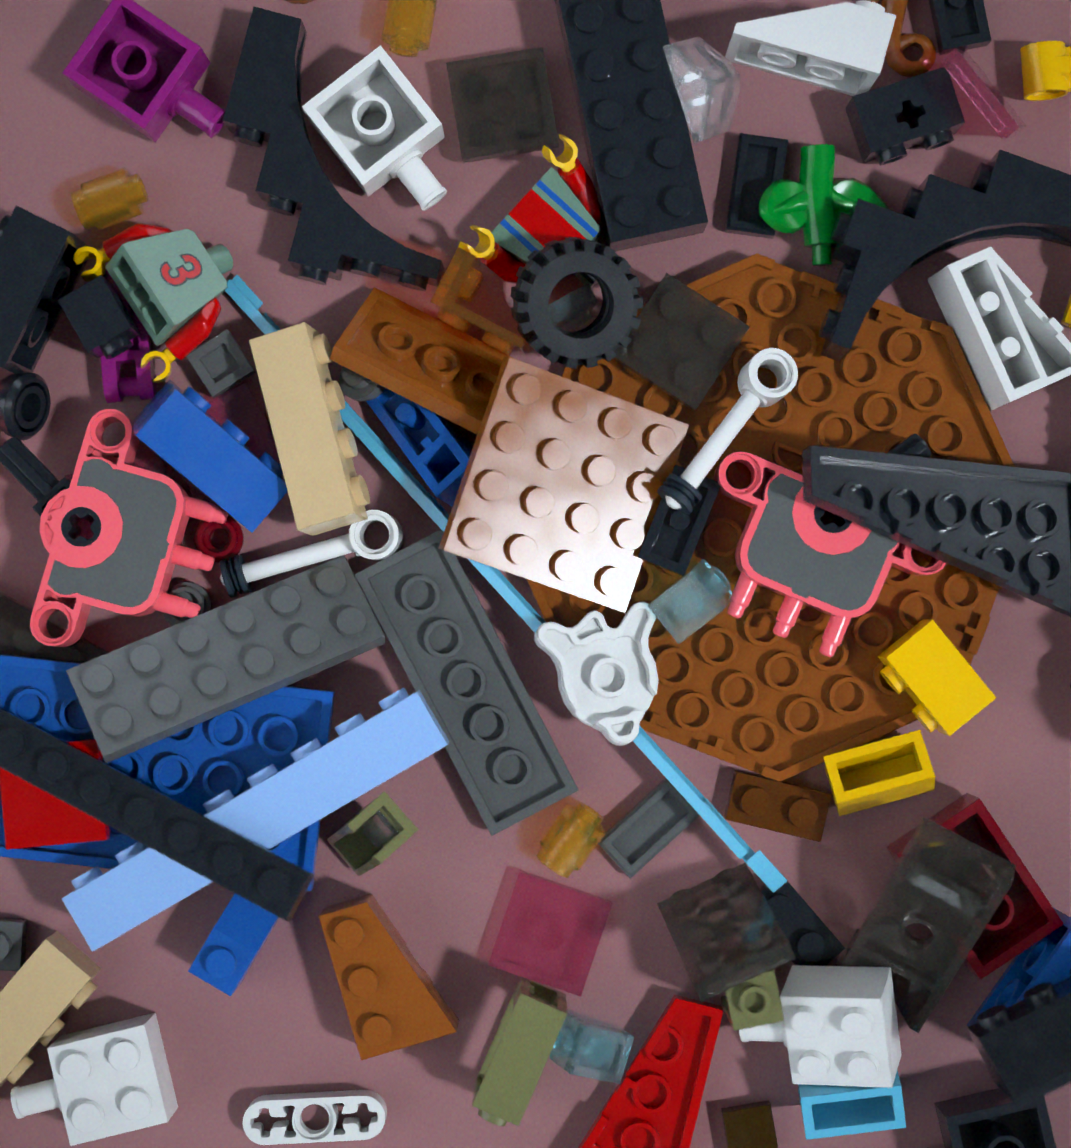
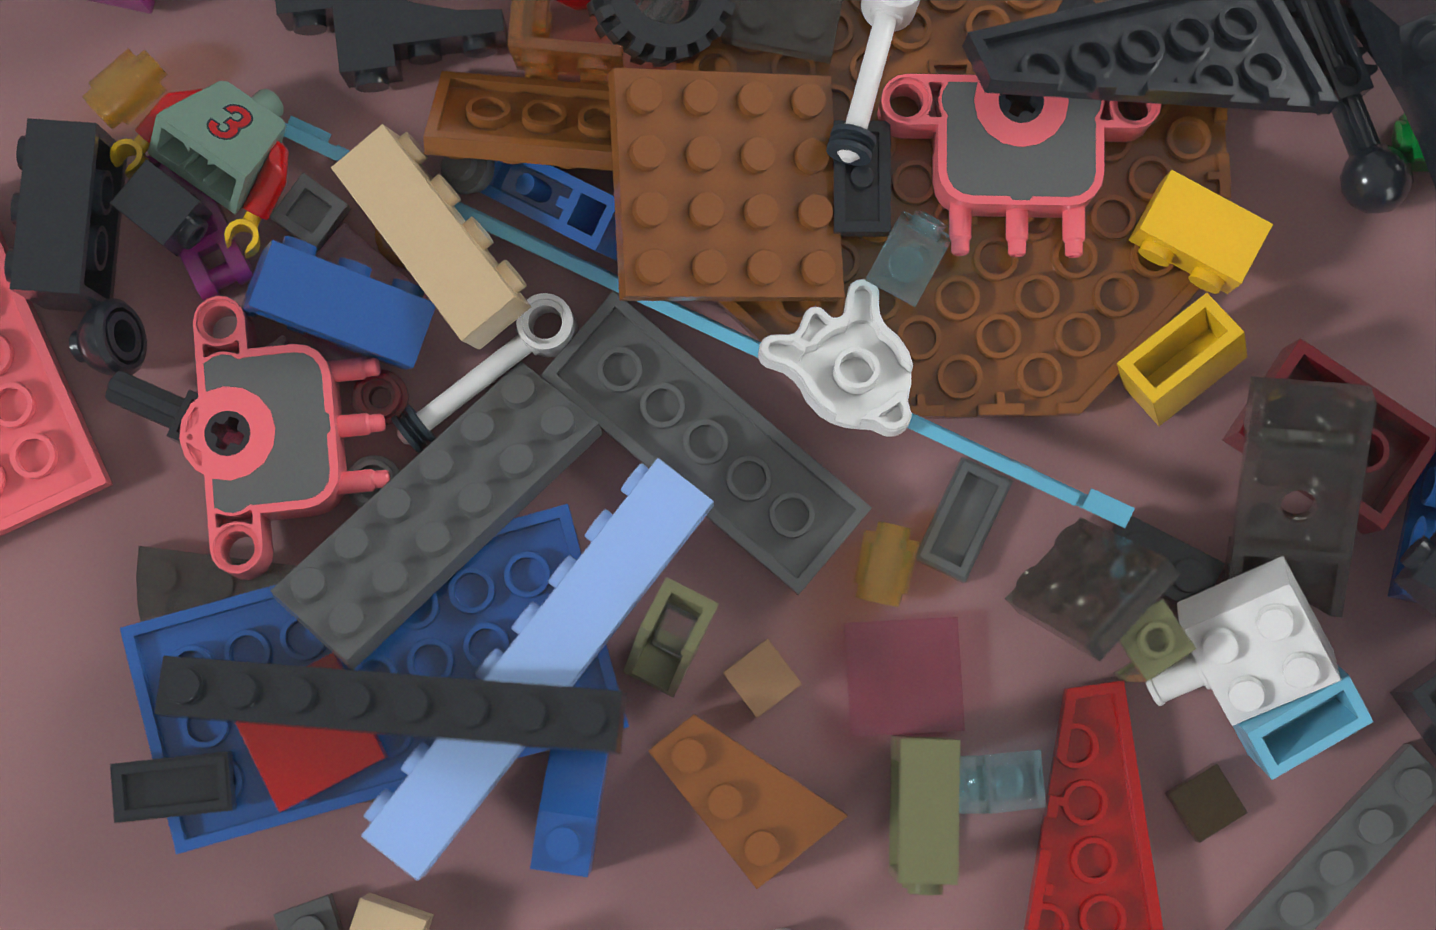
camera: 25 degrees left, 5 degrees down
(436, 888) = (762, 678): none -> medium nougat tile
(777, 806) = (1090, 442): reddish brown plate -> none

